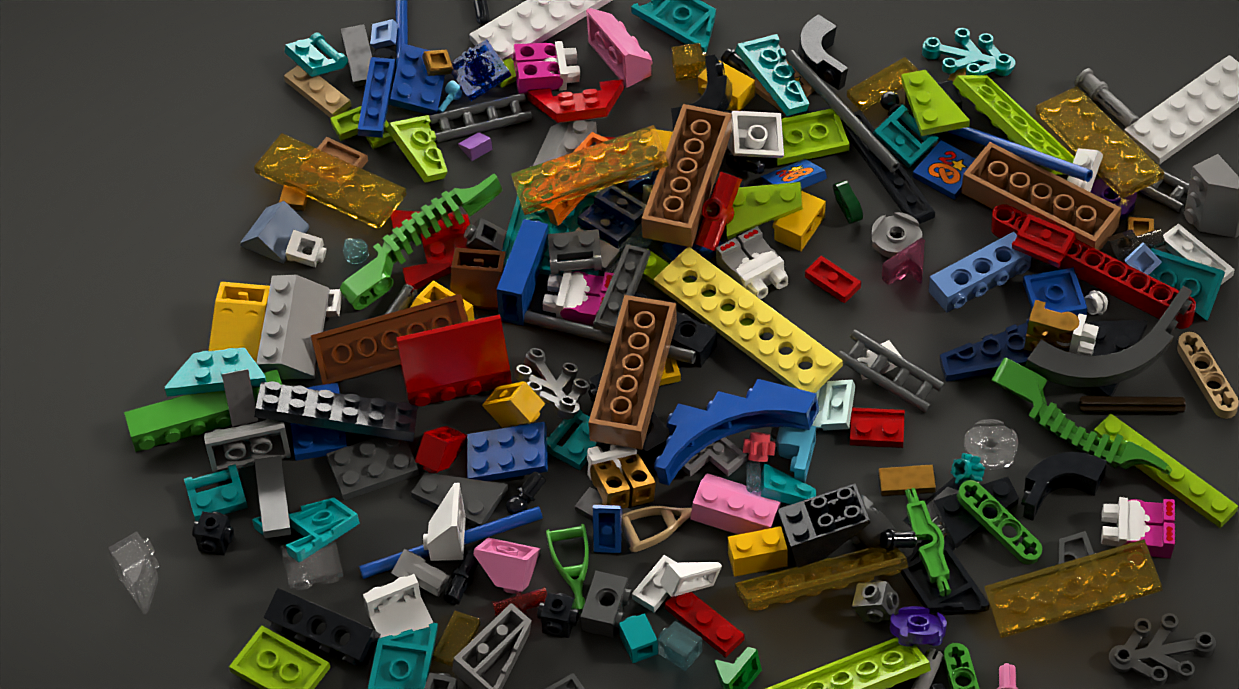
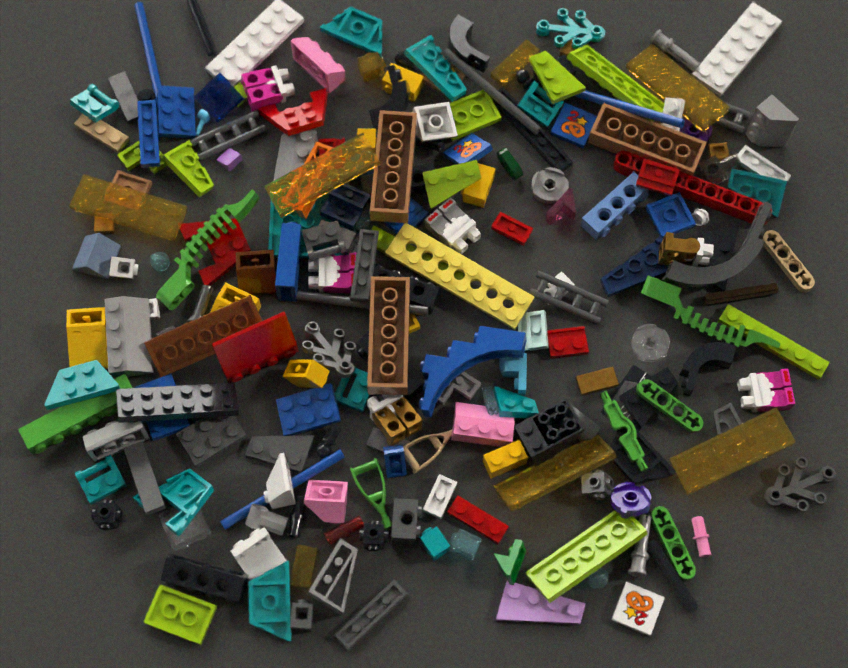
camera: 15 degrees left, 15 degrees up
(136, 568) = (57, 556): clear slope -> none
(239, 397) = (102, 404): flat silver tile -> none
(383, 34) = (141, 77): light blue plate -> none
(437, 62) = (187, 97): pearl gold tile -> none
(440, 448) = (259, 415): red slope -> none
(484, 236) = (254, 238): dark grey brick -> none
(688, 577) = (459, 492): white slope -> none
(723, 198) = (423, 180): red piece -> none
(759, 446) = (488, 374): coral gear -> none
(897, 539) = (600, 436): black pin -> none
(967, 469) = (639, 368): teal gear -> none
(1143, 259) = (728, 179): light blue plate -> none

